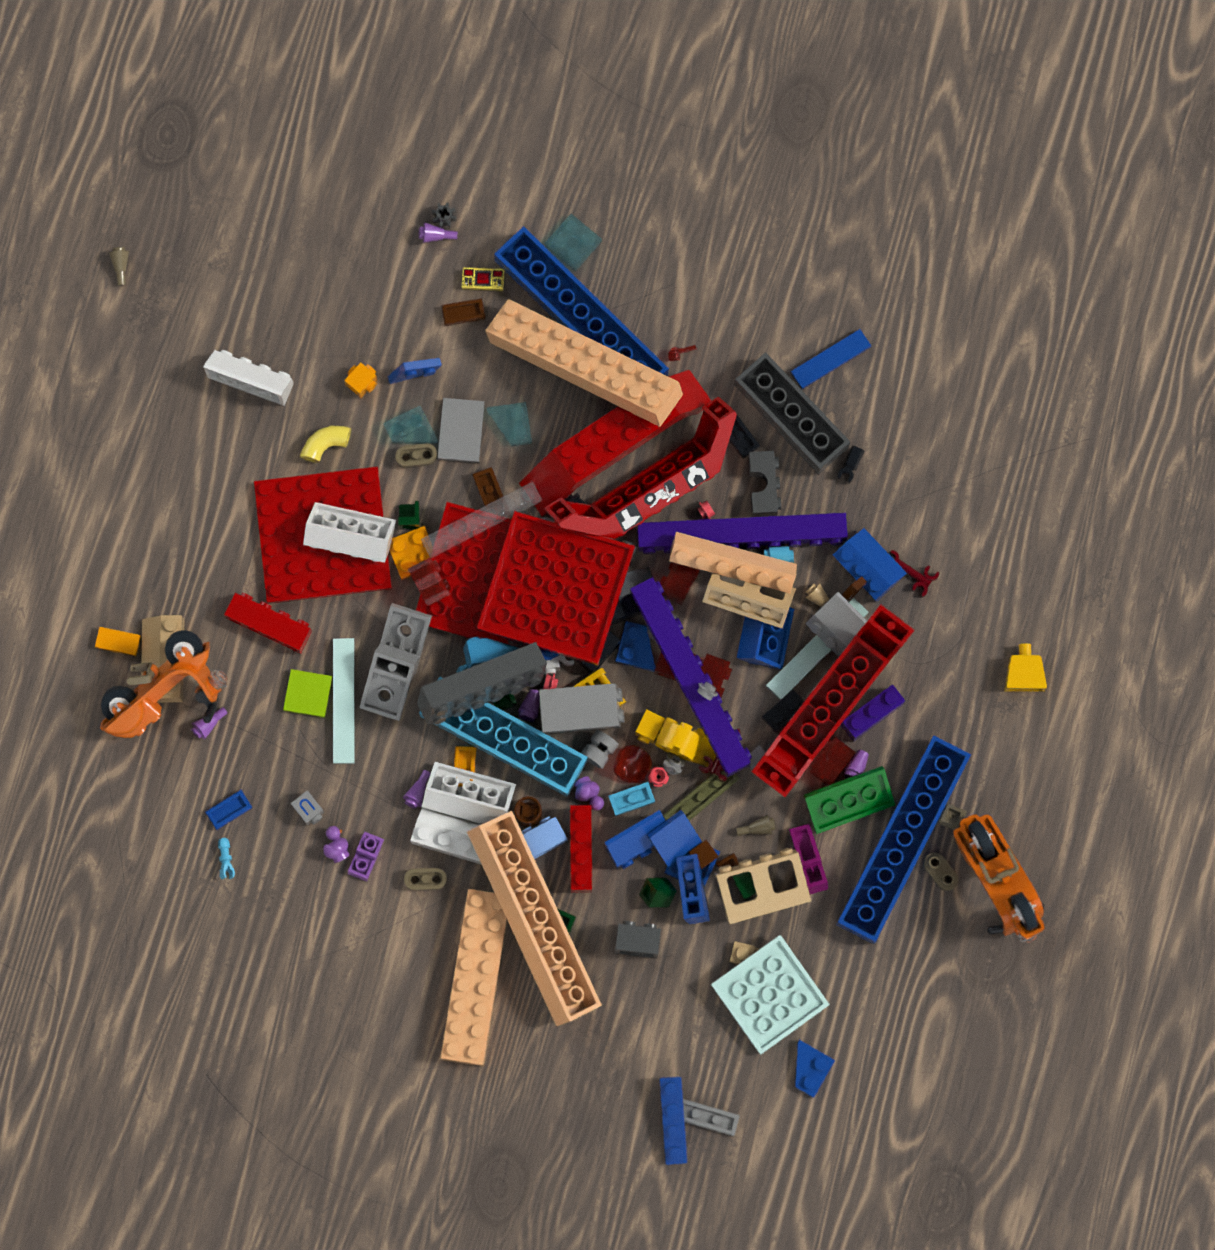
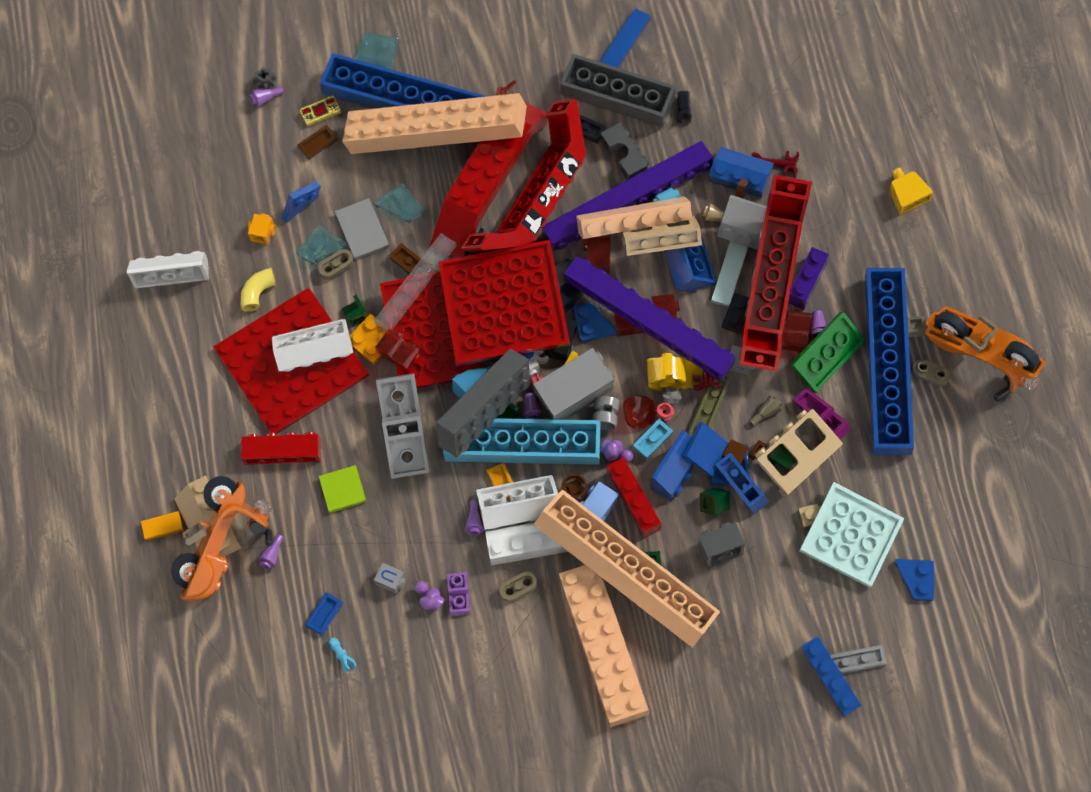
camera: 20 degrees left, 10 degrees down
(119, 260) = (17, 232): dark tan cone -> none
(344, 701) = (375, 480): light aqua tile -> none
(649, 727) = (636, 376): yellow brick -> none
(705, 510) = (589, 193): coral plate -> none
(707, 690) = (669, 317): light grey plate -> none

